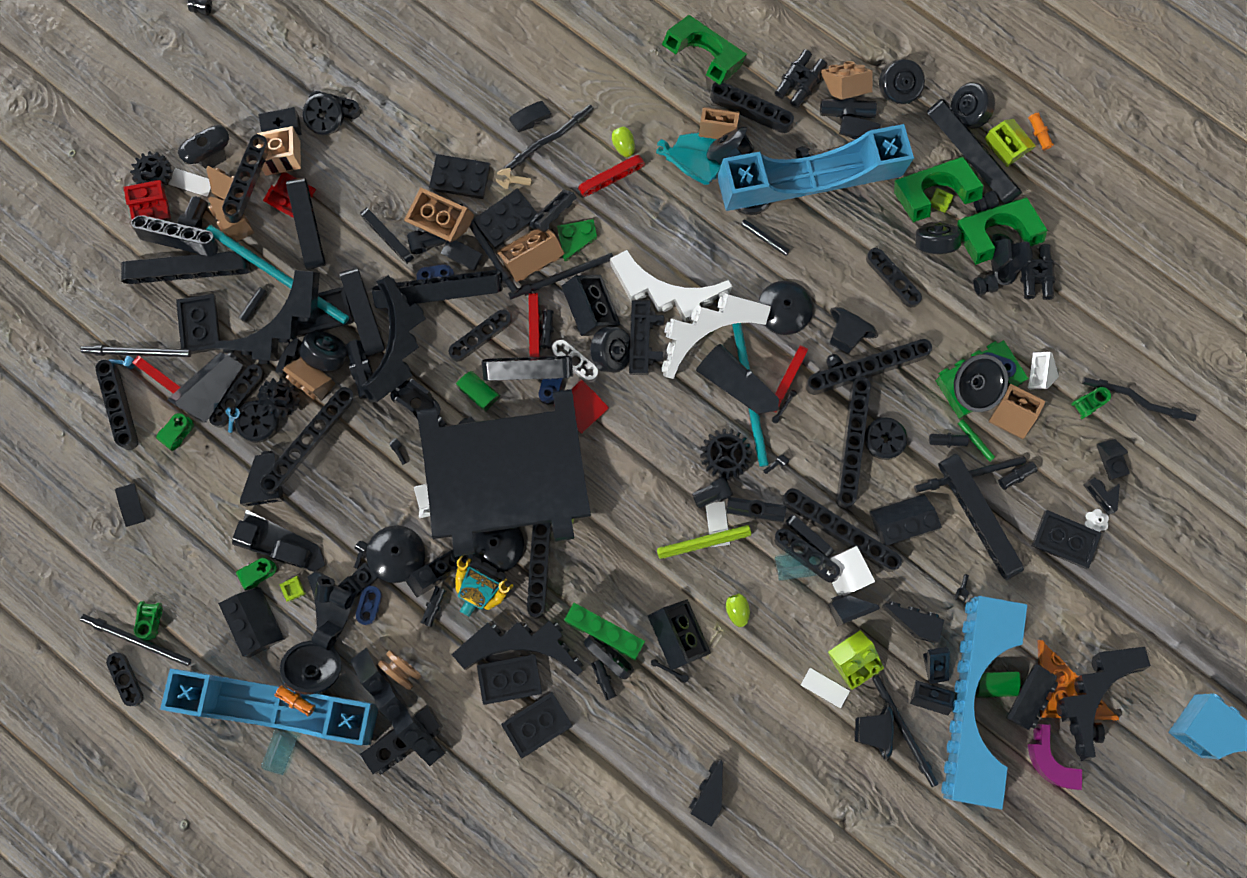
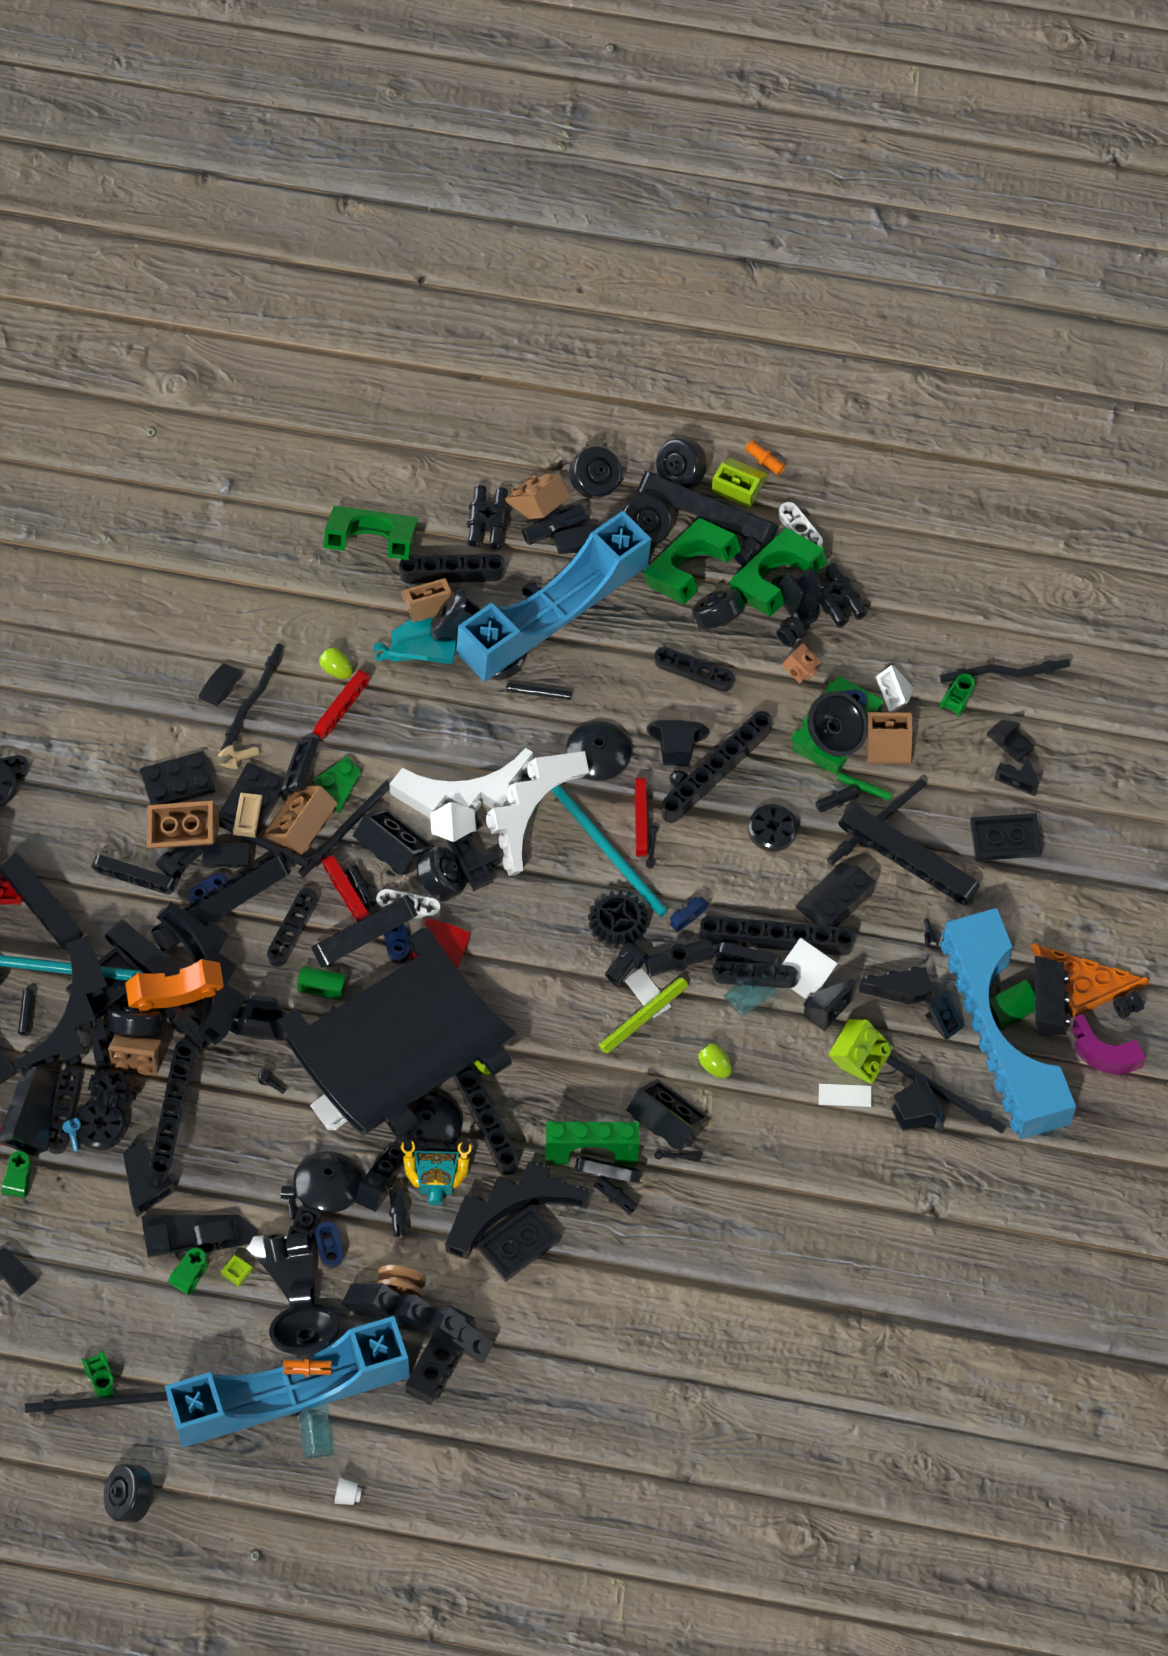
camera: 30 degrees left, 15 degrees down
(114, 728) = (128, 1493): none -> black wheel
(124, 663) = (97, 1431): black beam -> none
(251, 622) = (212, 1322): black slope -> none
(273, 814) = (347, 1492): none -> white hat
(370, 346) = (159, 991): none -> orange brick
(492, 230) = (248, 815): none -> tan tile
(536, 725) = (572, 1272): black plate -> none
(641, 314) = (452, 821): none -> white slope
(709, 801) = (788, 1251): black slope -> none
(736, 380) = (587, 841): black panel -> none
(775, 478) = (694, 909): none -> dark blue plate
(781, 460) = (678, 899): black hand -> none
(853, 433) = (742, 855): black beam -> none
(924, 138) = (651, 516): none -> black wheel
(932, 698) = (956, 1051): black slope -> none
(941, 200) = (701, 571): lime tile -> none
(979, 315) = (801, 664): none -> nougat brick
(1017, 475) = (924, 799): black pin -> none
(1041, 194) = (799, 519): none -> white beam
(1091, 687) = (1111, 936): black arch -> none
(1093, 522) = (1027, 805): white plant -> none

